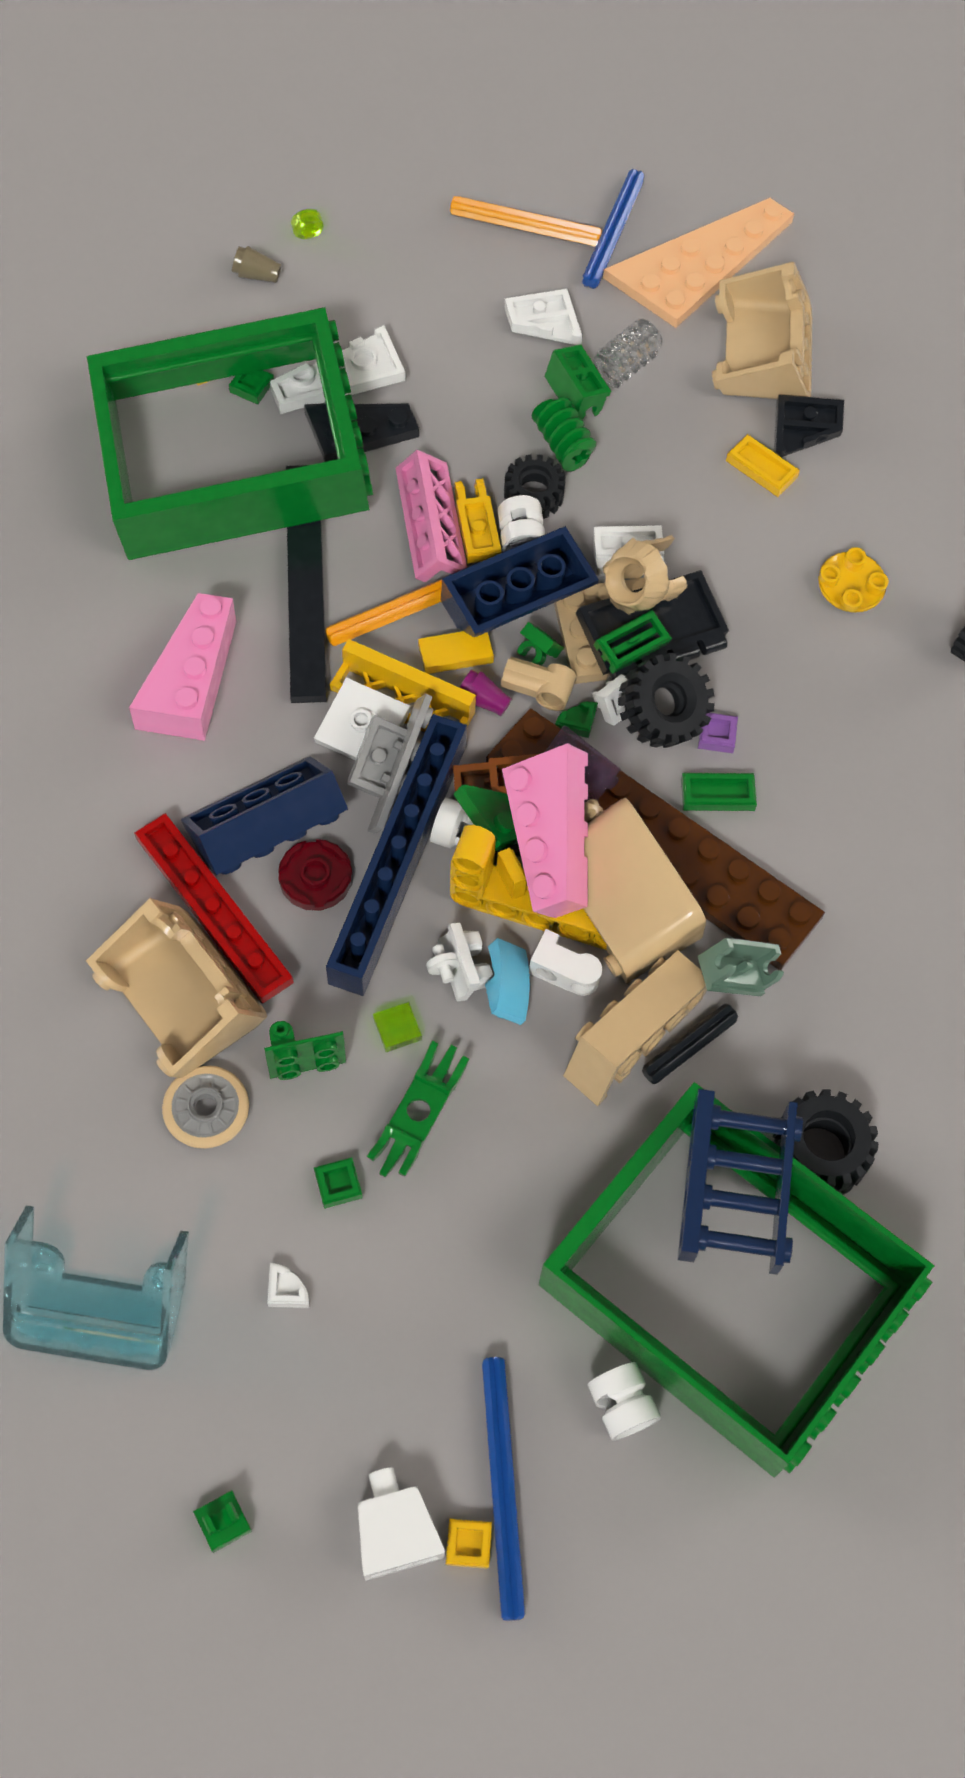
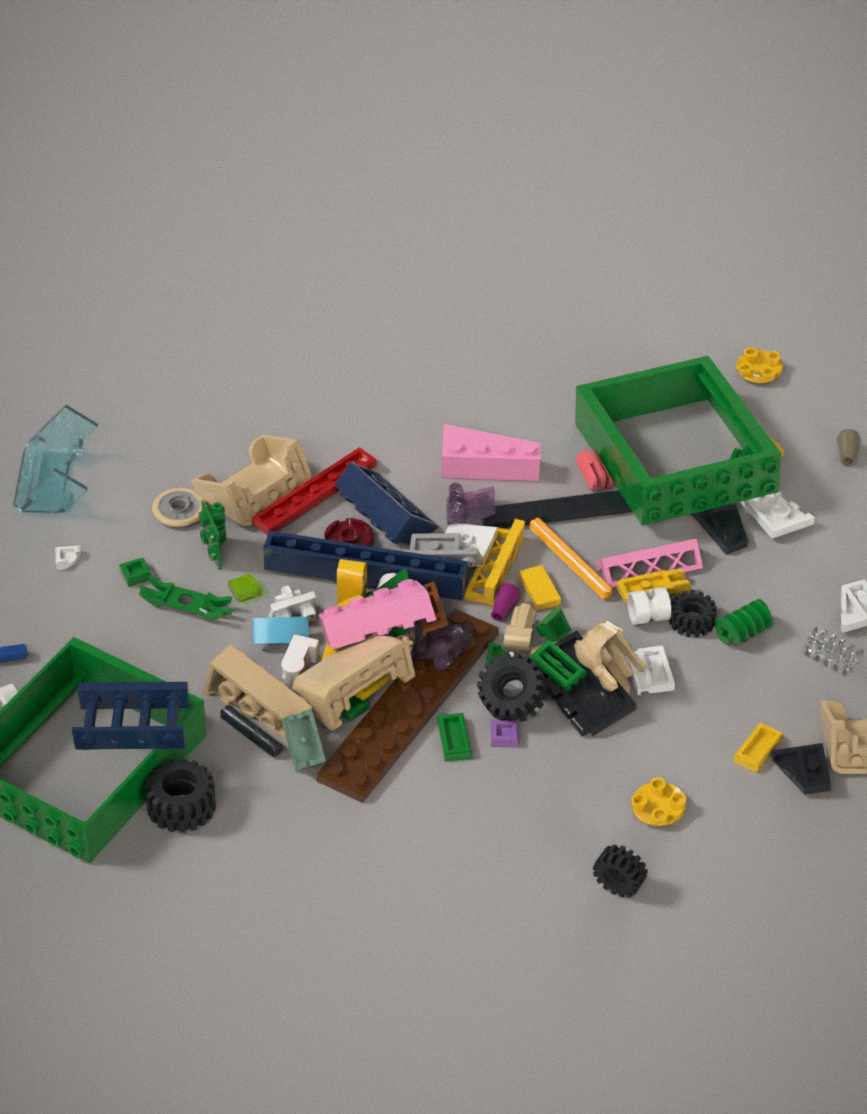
camera: 85 degrees right, 20 degrees down
(70, 326) = (759, 365): none -> yellow dish
(245, 548) = (594, 471): none -> coral arm
(289, 705) = (469, 505): none -> clear purple hinge
(516, 583) = (593, 597): dark blue slope -> none
(577, 378) = (796, 624): green hinge -> none

